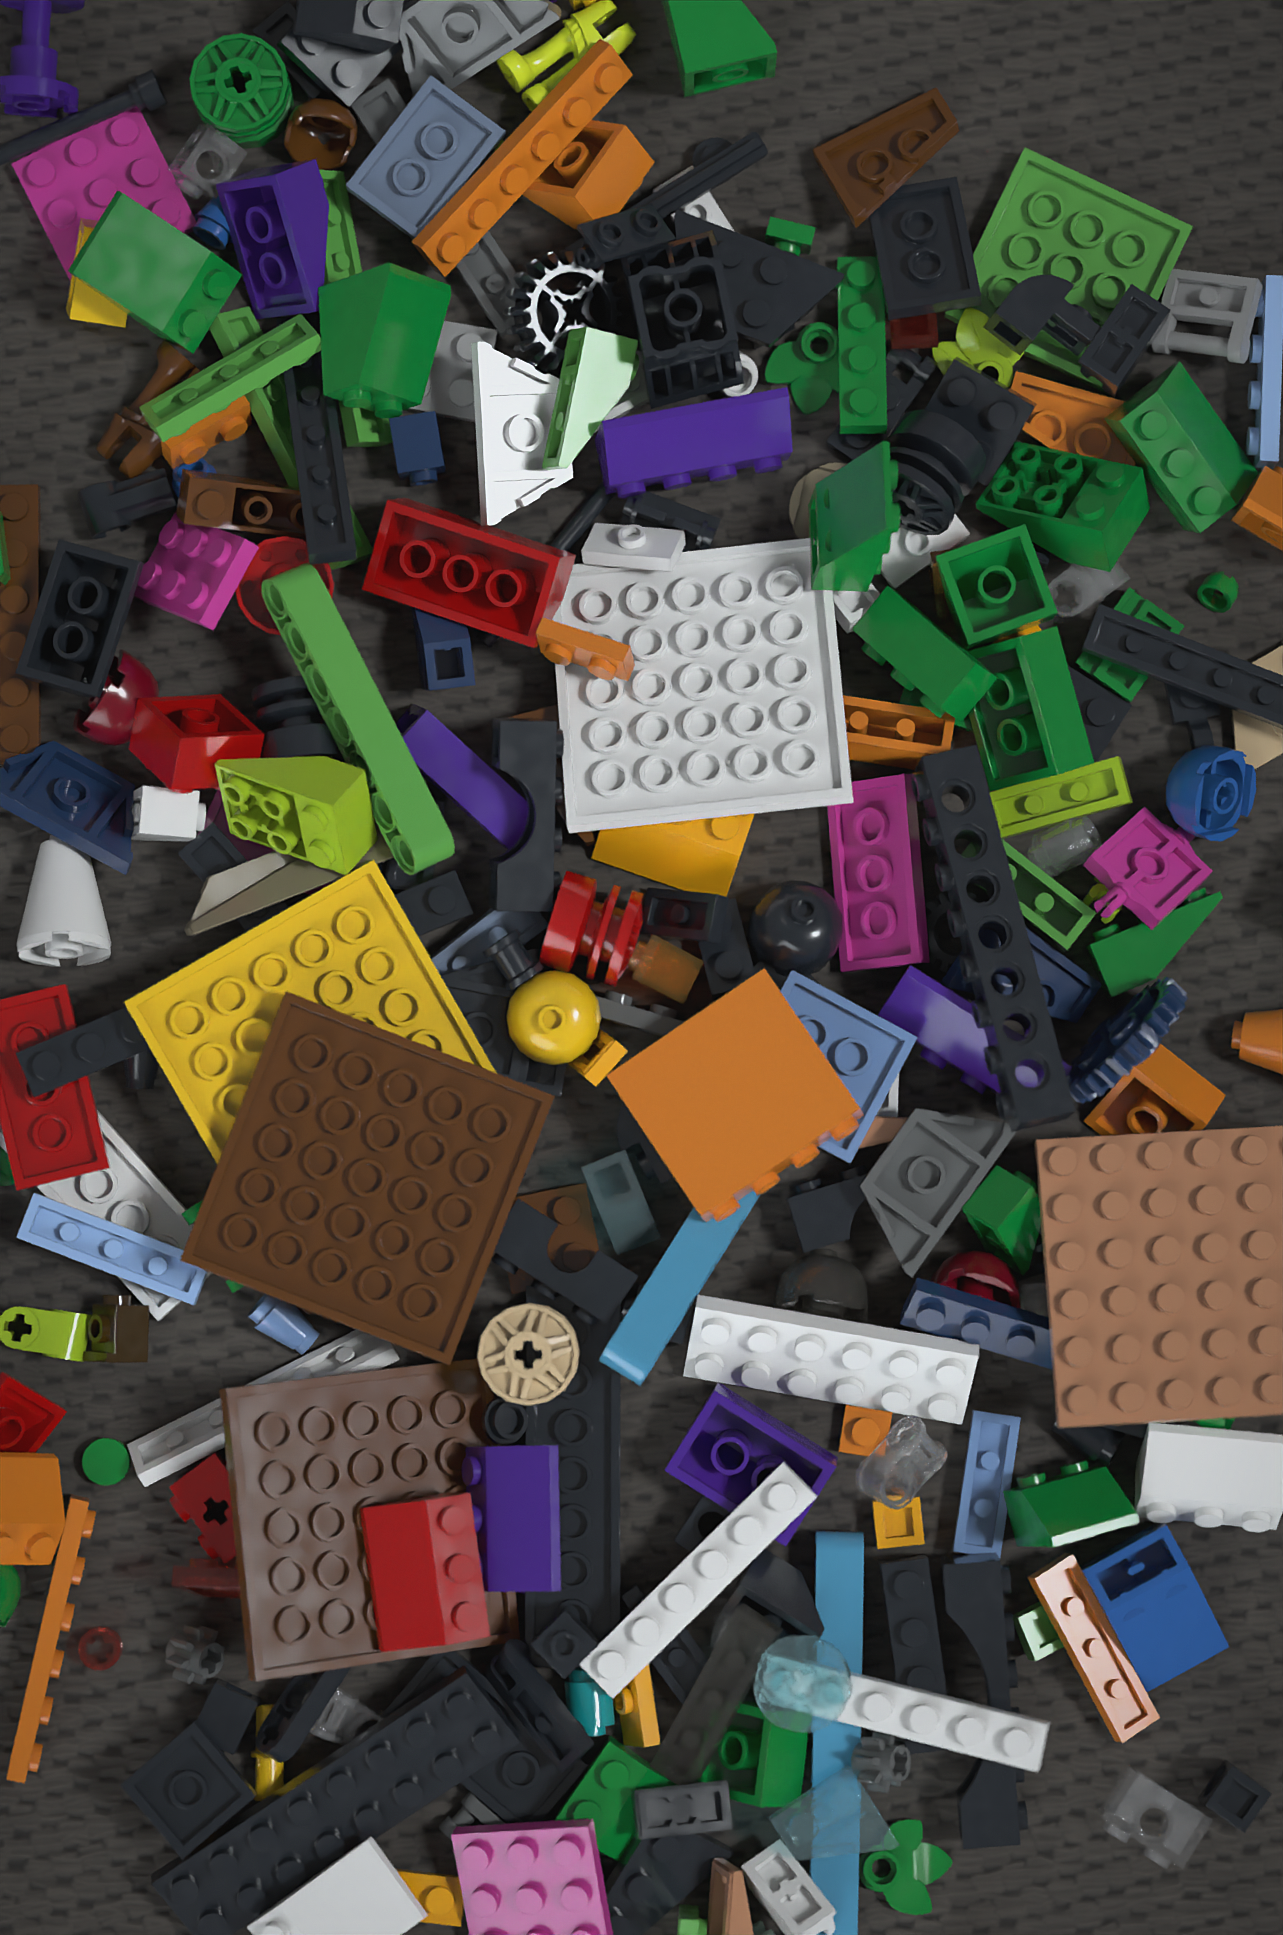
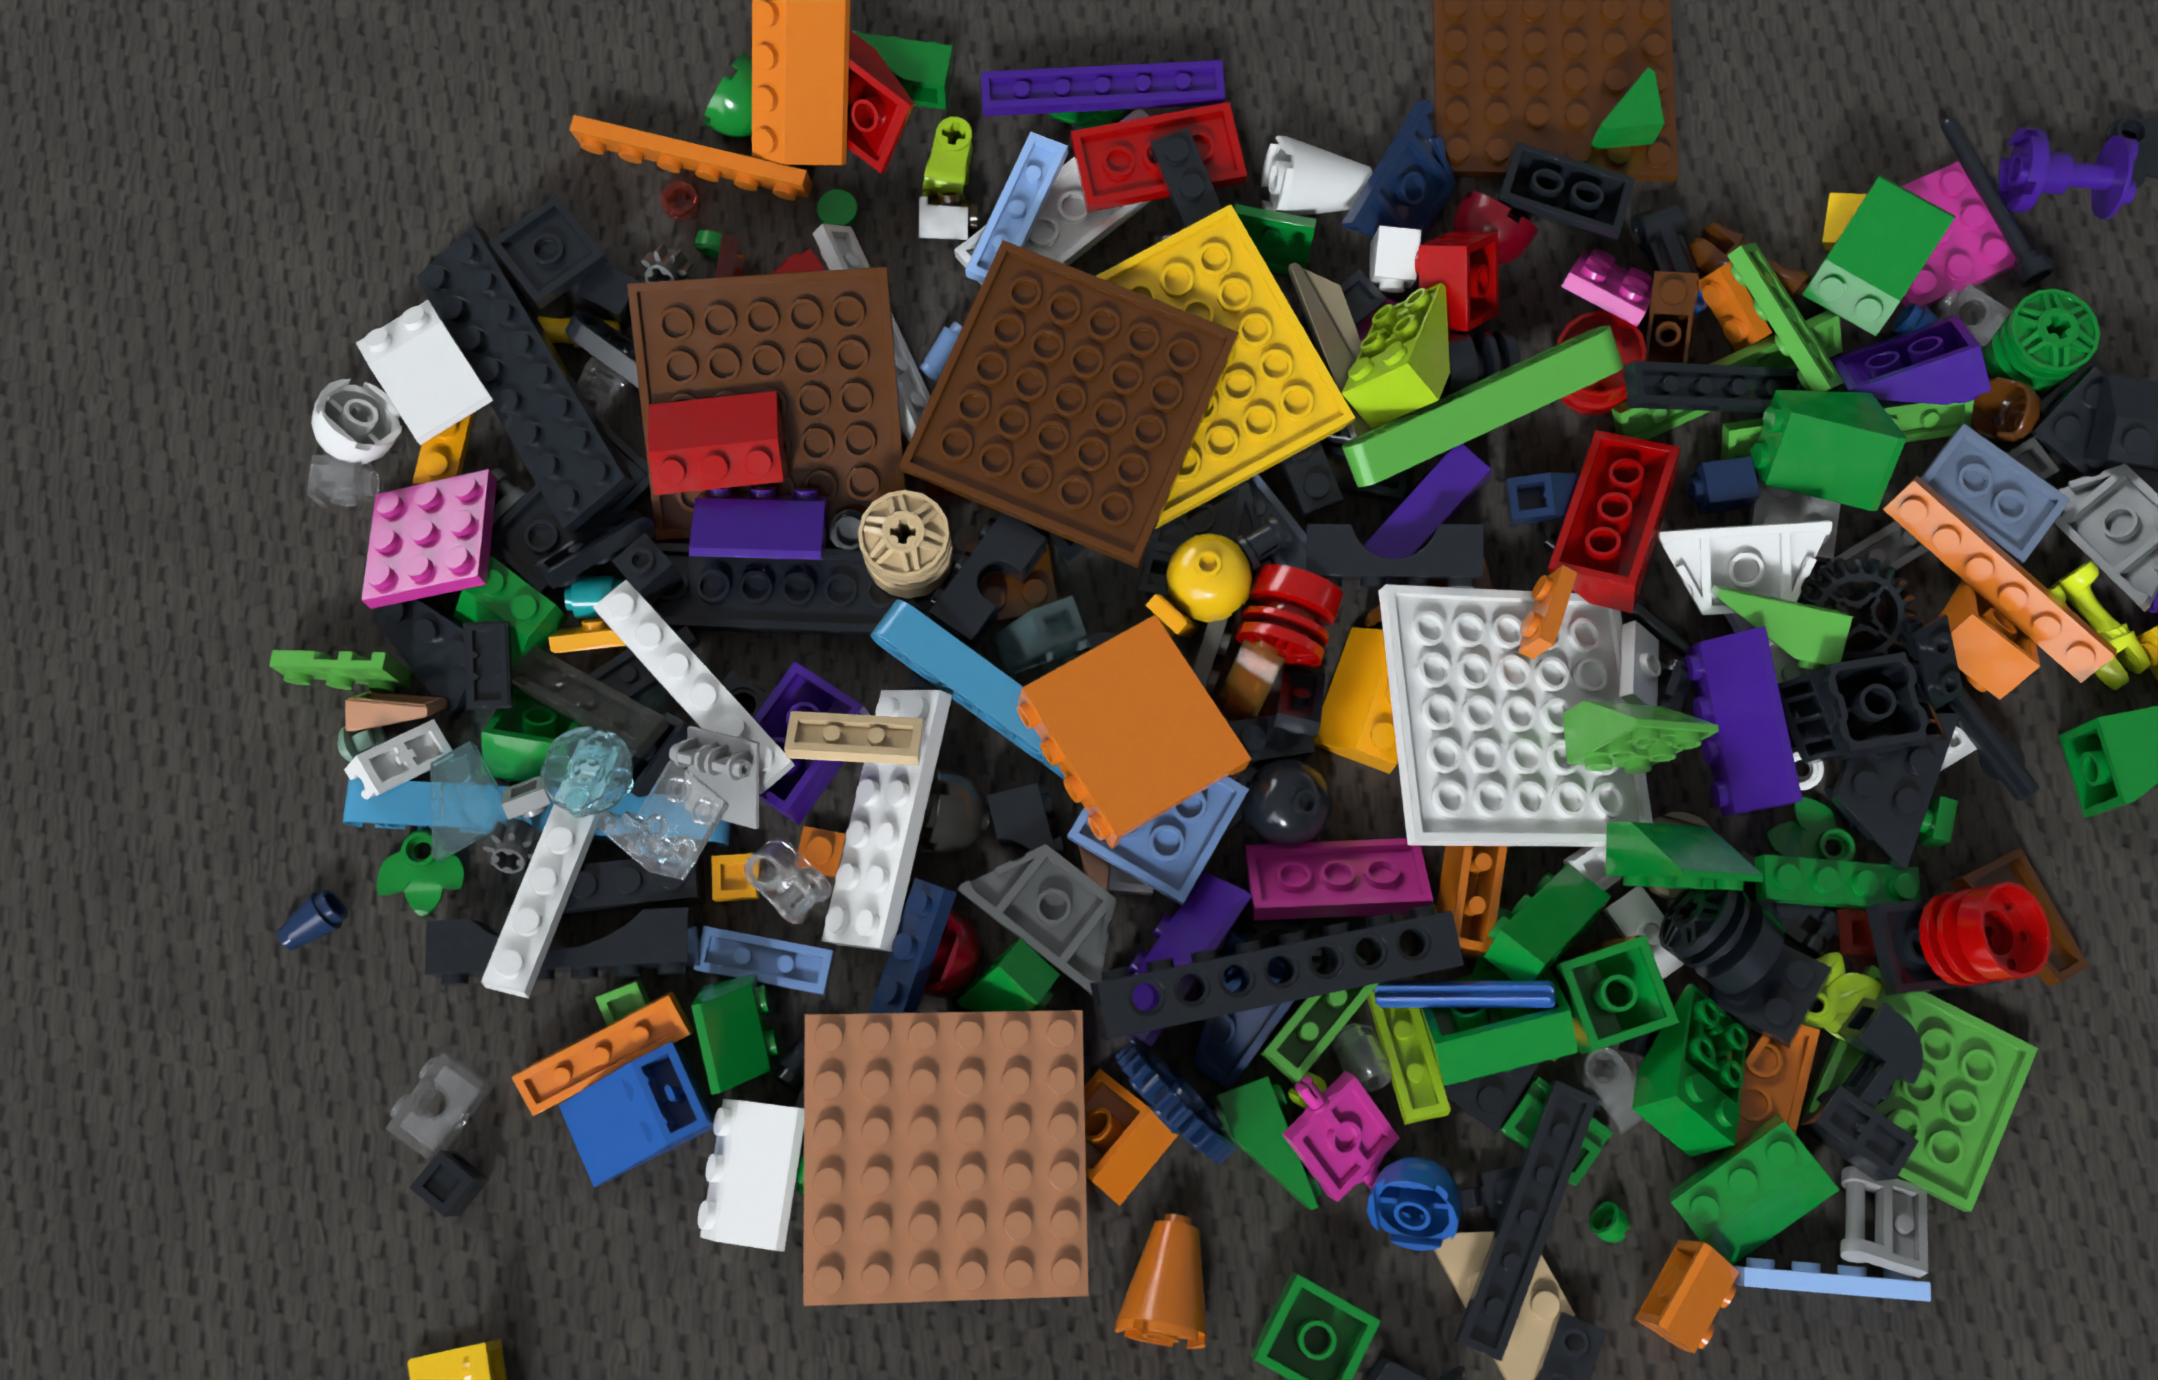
camera: 90 degrees right, 10 degrees down
(138, 951) = (1278, 236): none -> green plate
(158, 1601) = (708, 243): none -> green tile
(721, 566) = (1629, 735): none -> bright green slope
(756, 1396) = (854, 738): none -> tan plate
(802, 1538) = (727, 767): none -> light grey hinge
(829, 1750) = (525, 799): none -> light grey plate
(855, 1591) = (670, 824): none -> clear bracket
(919, 205) = (1985, 934): none -> red wheel
(1002, 736) = (1466, 994): none -> blue axle

